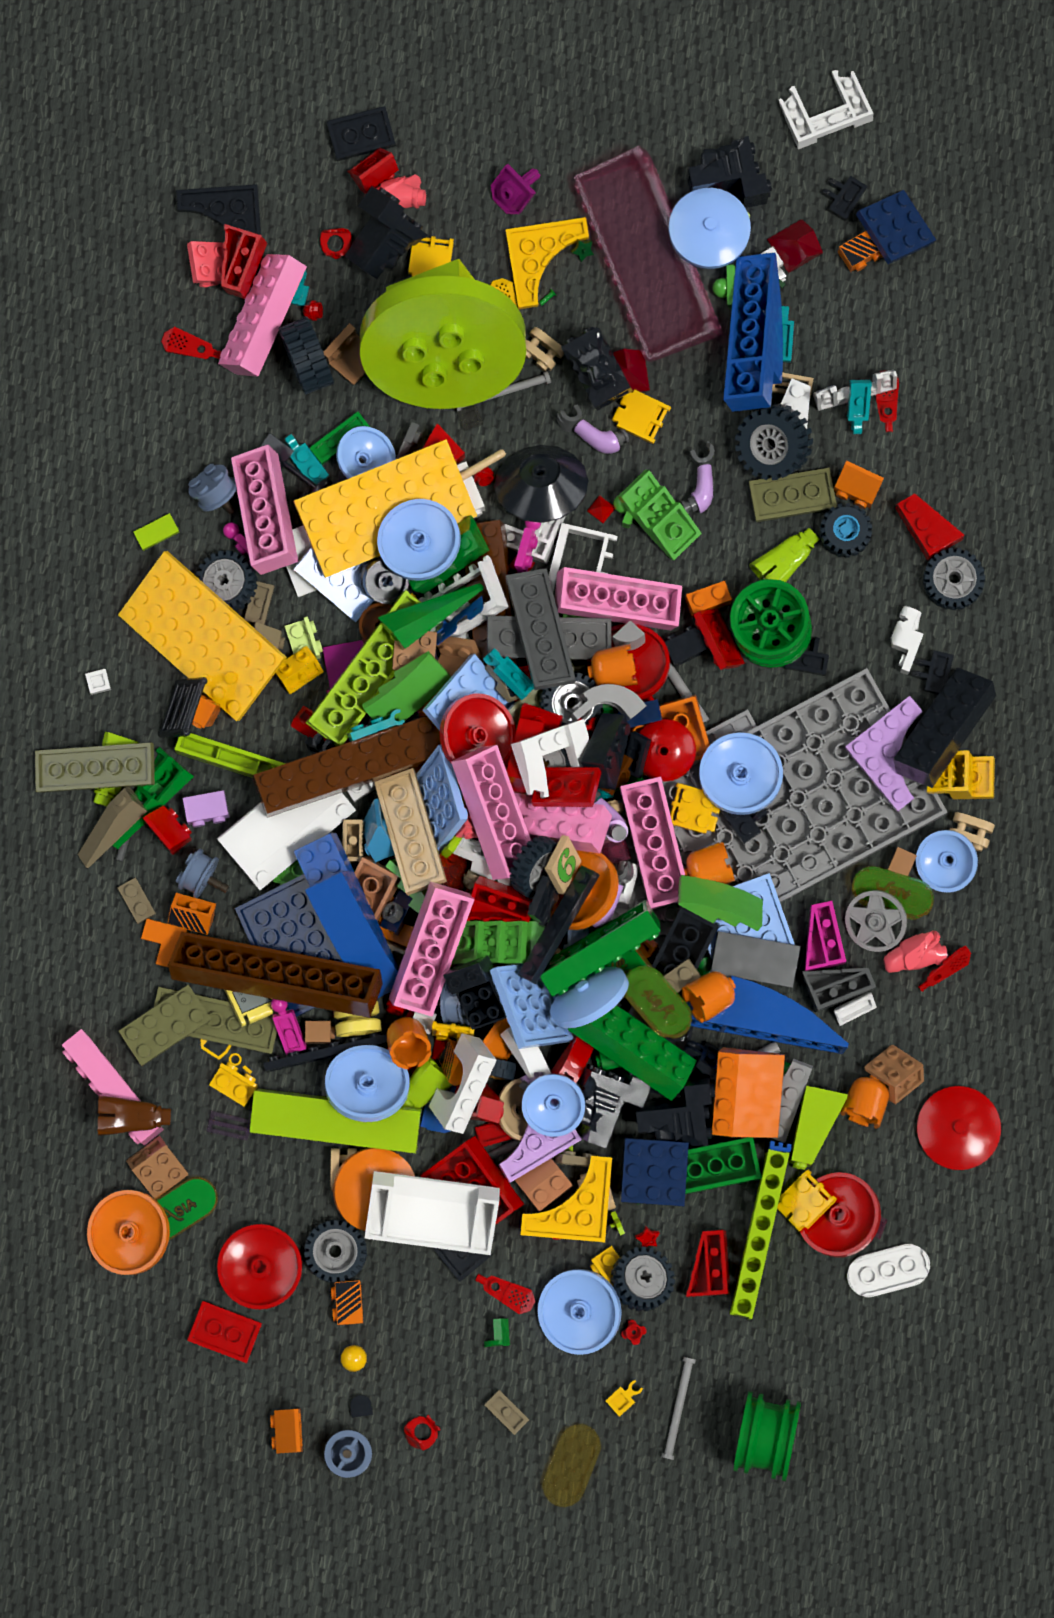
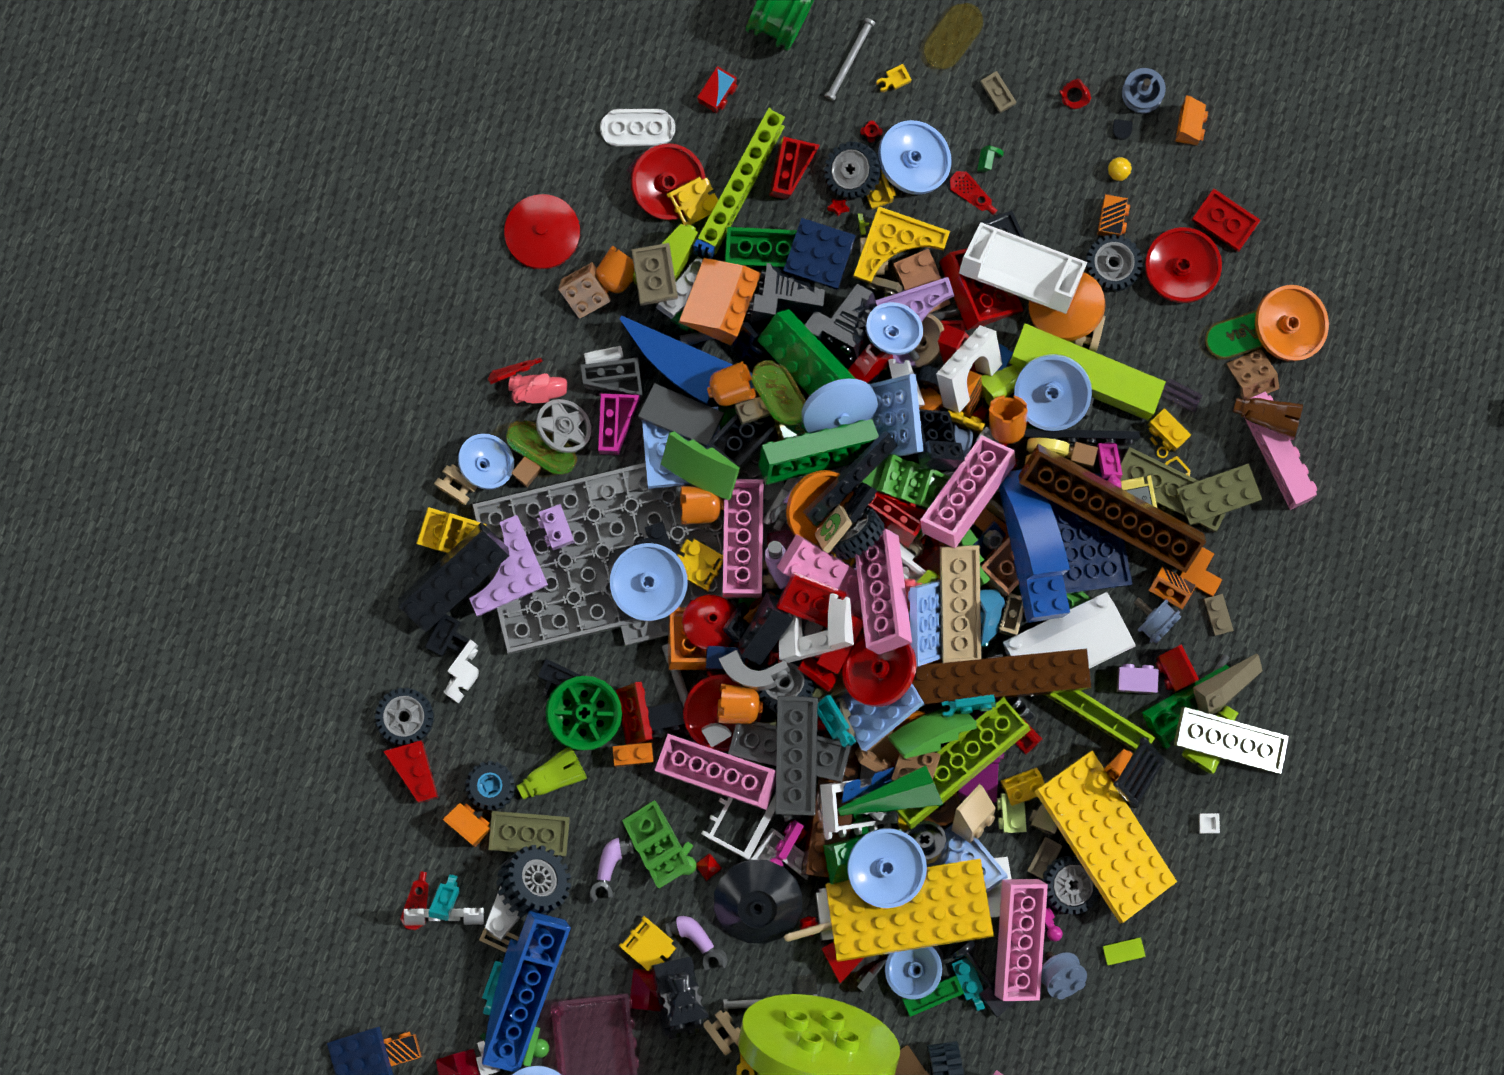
camera: 165 degrees left, 0 degrees up
(342, 623) = (973, 815): none -> tan slope
(813, 1333) = (717, 90): none -> red brick
(824, 1100) = (654, 274): none -> dark tan tile
(853, 807) = (556, 527): none -> lavender brick

